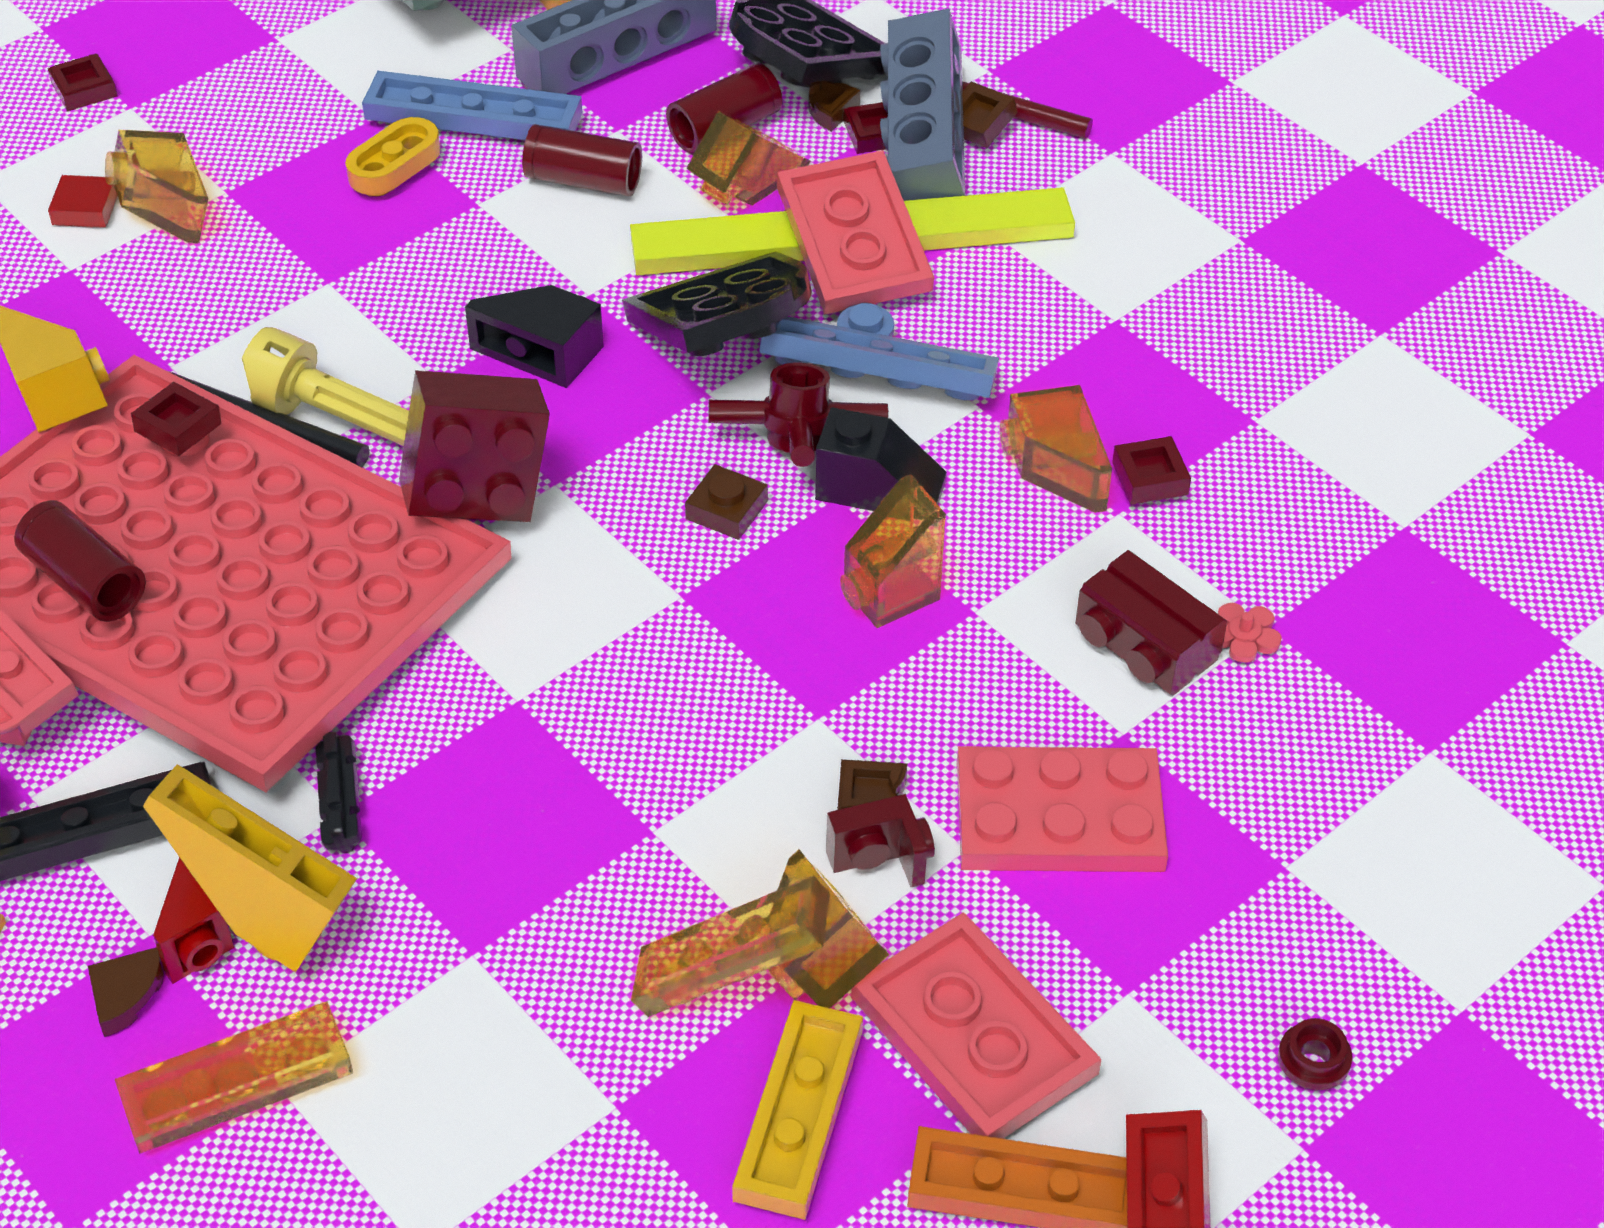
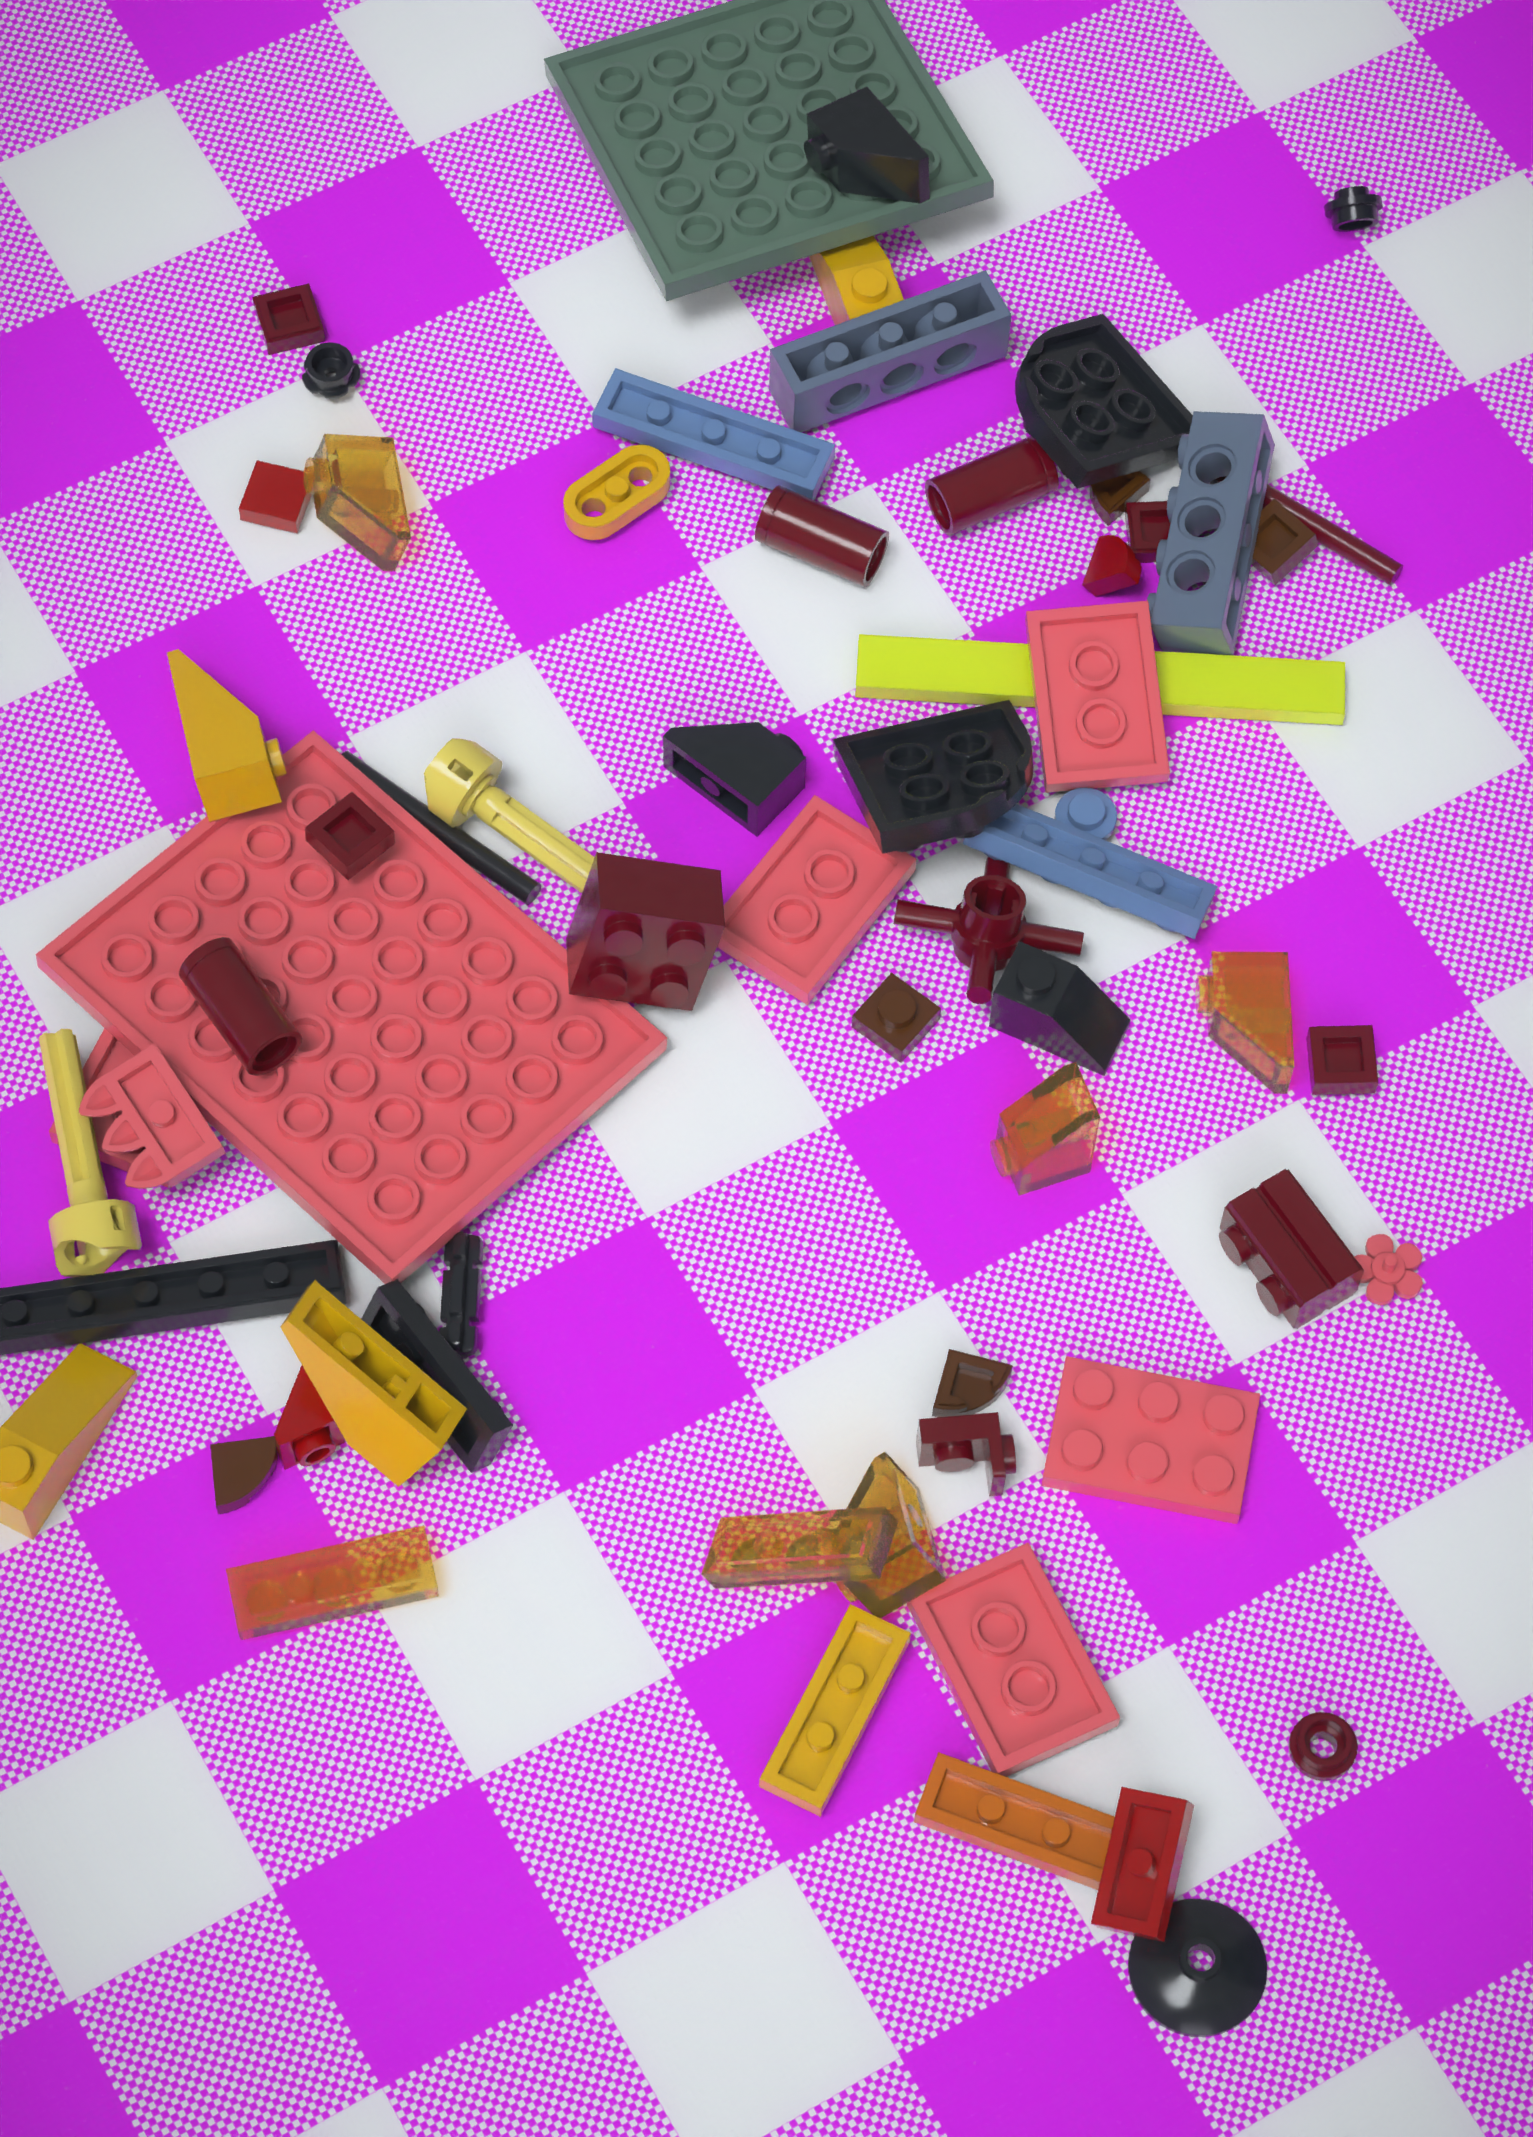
camera: 10 degrees right, 15 degrees up
(122, 107) = (326, 359): none -> black plate
(376, 898) = (411, 1332): none -> black plate
(627, 420) = (811, 899): none -> coral plate
(740, 161) = (1000, 569): slope -> none
(844, 143) = (1111, 566): none -> red tile

